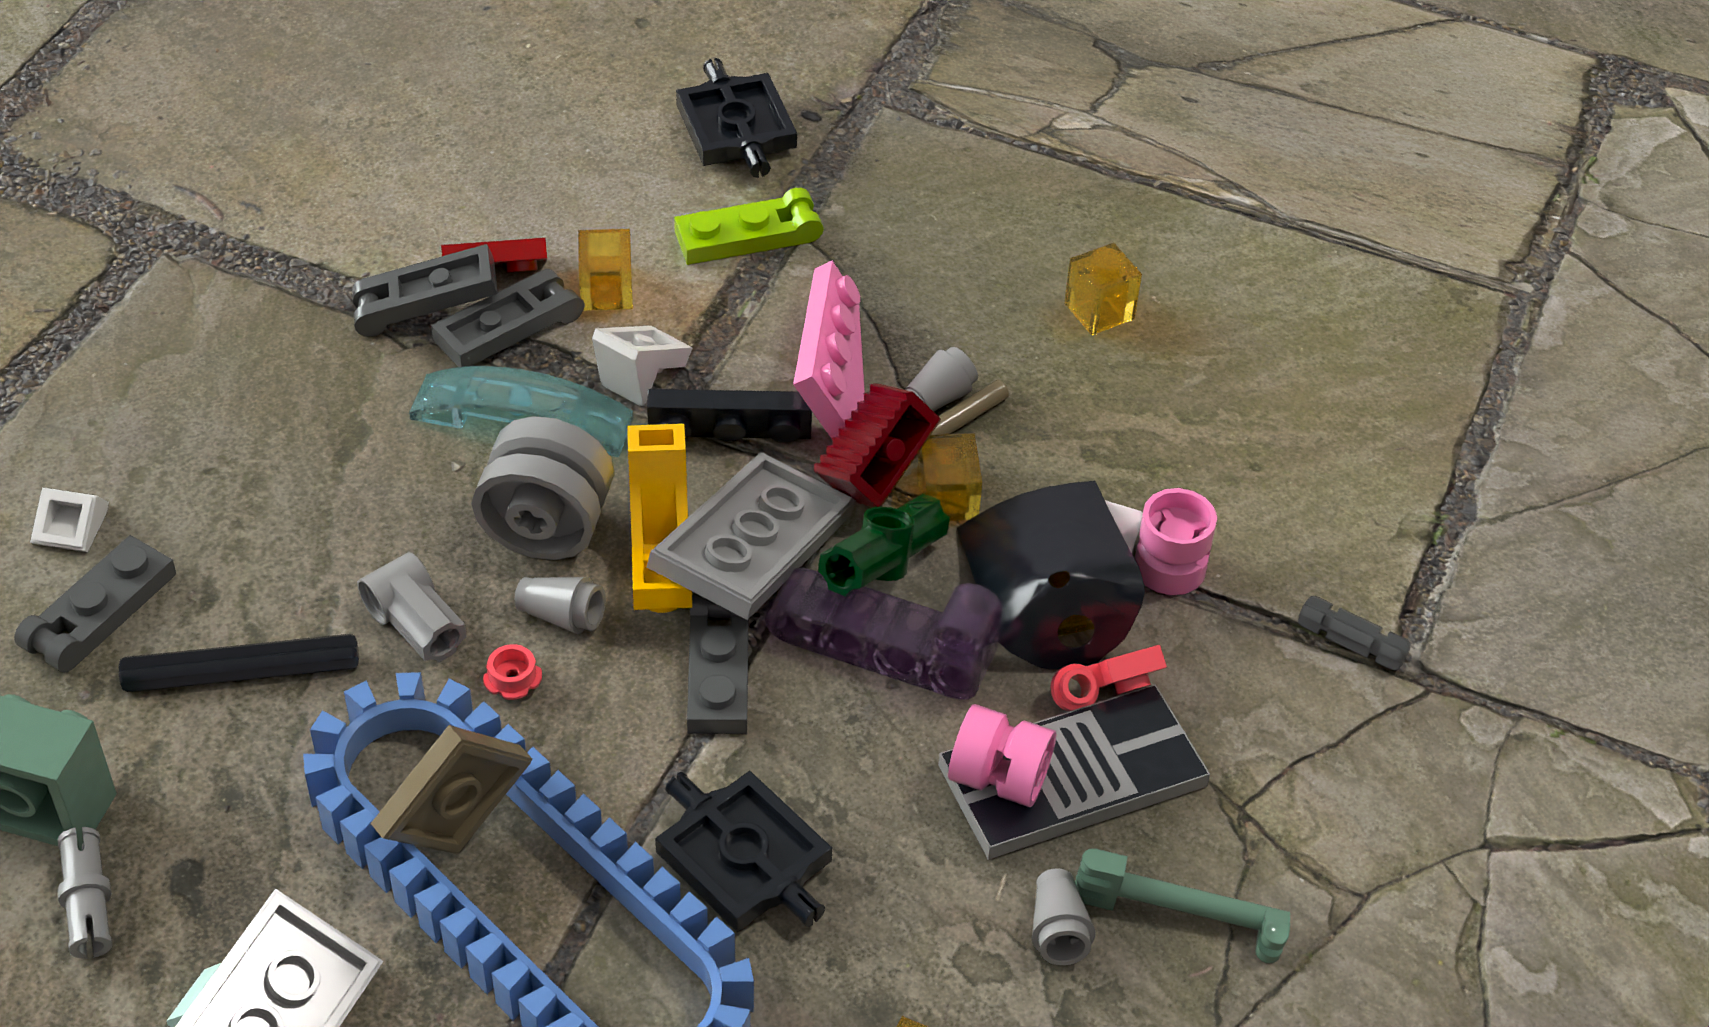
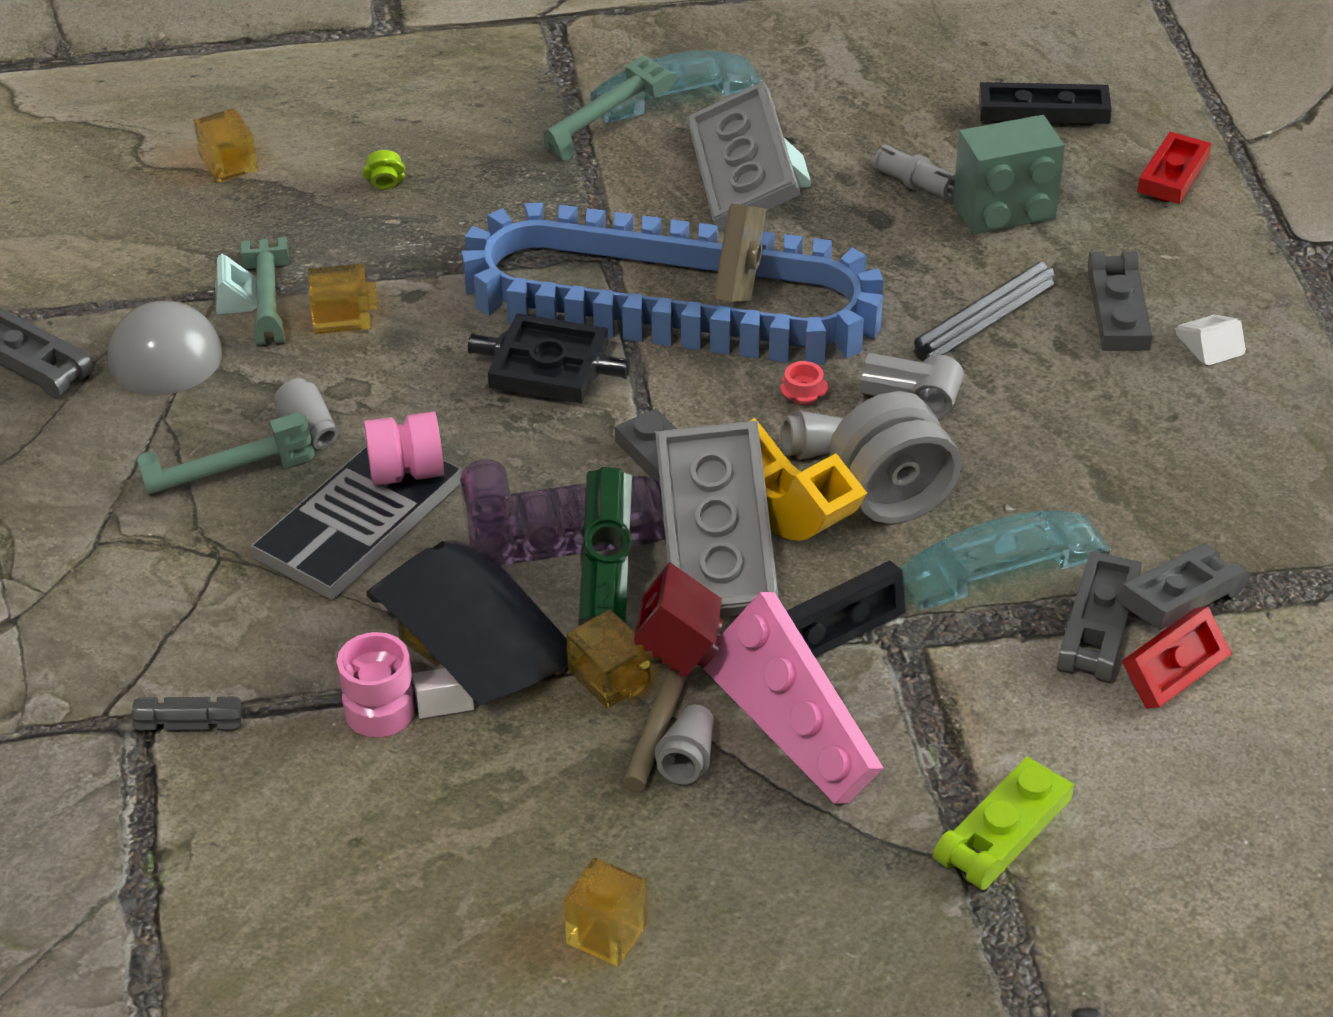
camera: 150 degrees right, 5 degrees down
(605, 269) = (1069, 691): clear yellow brick -> none
(633, 356) = (952, 617): white slope -> none
(736, 118) = (1138, 932): black plate -> none
(1125, 672) = (363, 568): coral plate -> none

